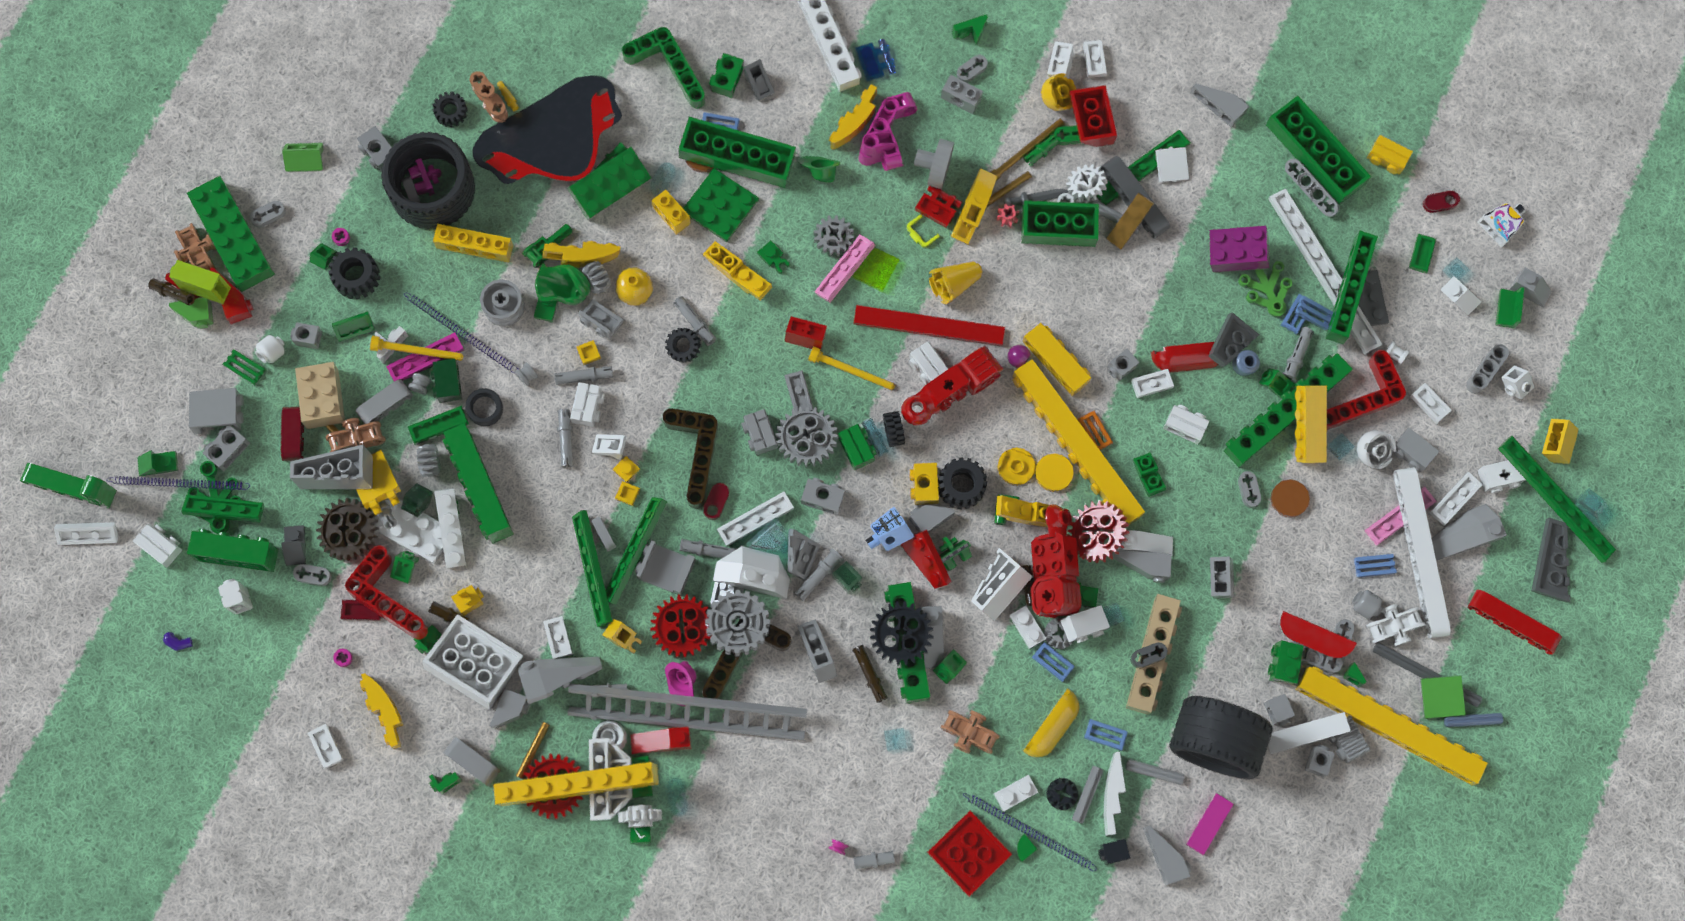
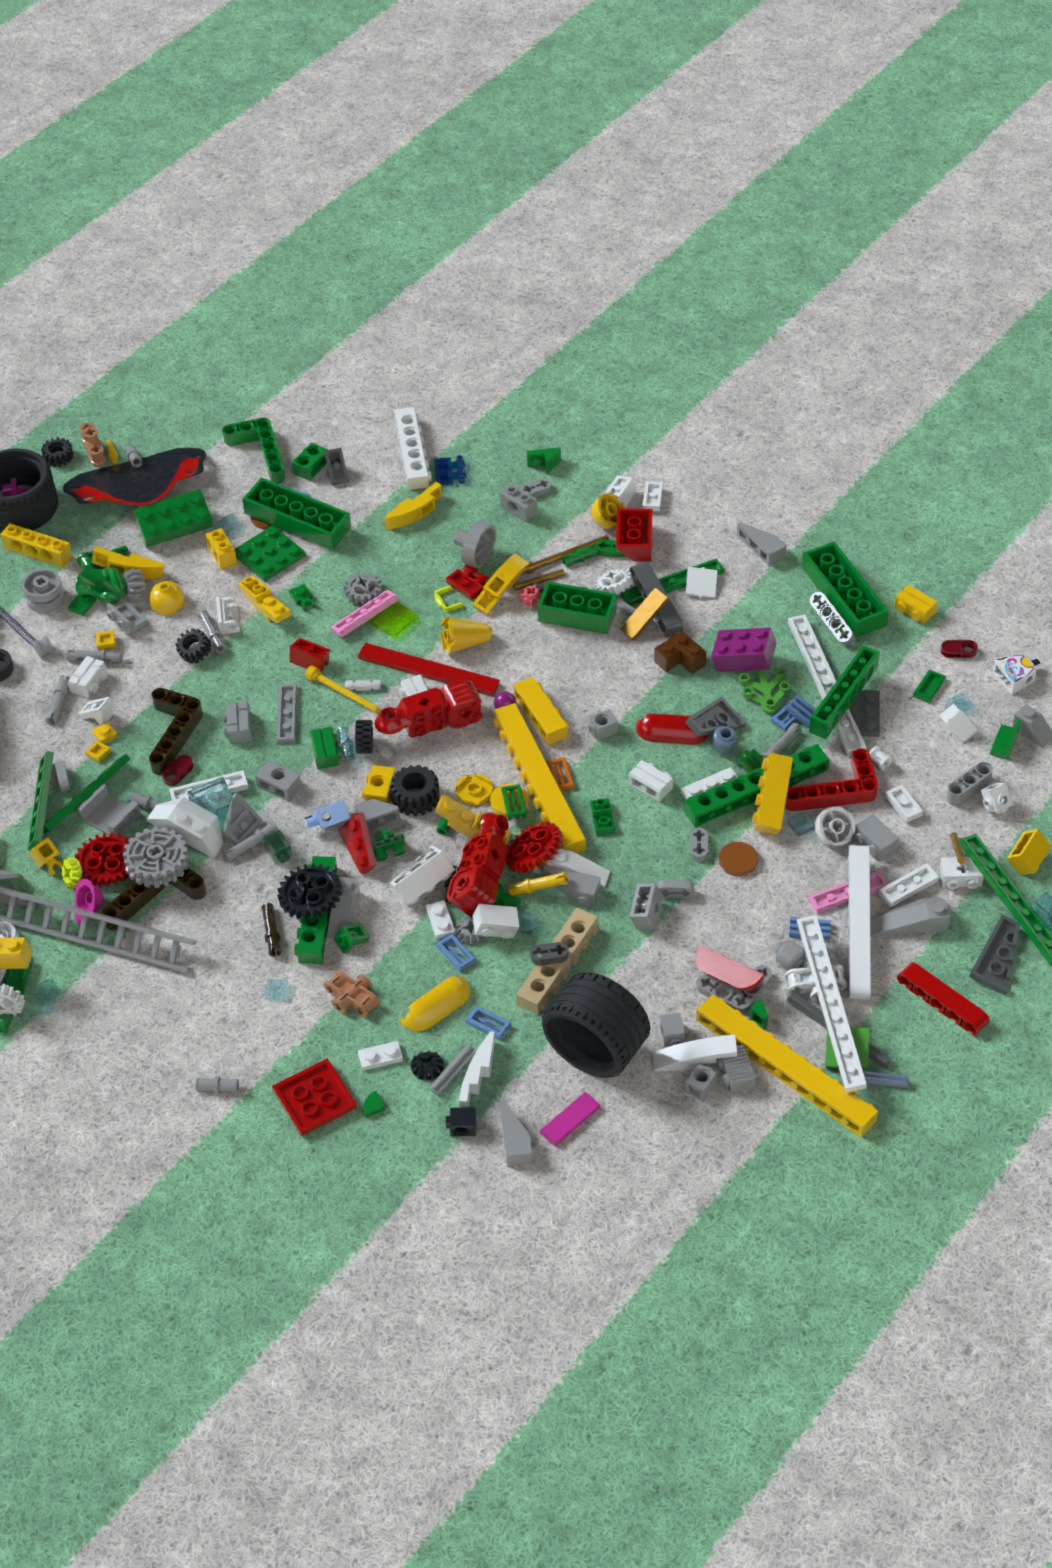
camera: 20 degrees right, 25 degrees down
(535, 101) = (133, 455): none -> light grey pin
(649, 645) = (71, 872): none -> neon yellow gear
(661, 740) = (56, 947): slope -> none
(704, 297) = (227, 615): none -> white hinge
(815, 450) = (280, 730): light grey gear -> none
(817, 651) = (226, 903): light grey slope -> none
(820, 167) = (371, 539): green piece -> none
(838, 847) = (186, 1066): dark pink bush -> none
(870, 358) = (363, 685): none -> white axle
(881, 144) = (427, 523): dark pink connector -> none
(996, 809) = (330, 1049): dark purple piece -> none
(1060, 491) = (516, 813): none -> green tile
(1113, 572) = (529, 886): none -> yellow pin
(1152, 383) = (628, 744): white plate -> none
(1156, 772) = (528, 1063): light grey axle -> none
(1177, 258) = (680, 650): none -> reddish brown brick
(1241, 547) = (676, 888): none -> light grey beam
(1242, 416) = (708, 783): none -> white plate
(1285, 662) = (691, 990): green bracket -> none
(1422, 657) = (831, 1004): none -> white plate
(1494, 450) = (957, 848): none -> pearl gold bar

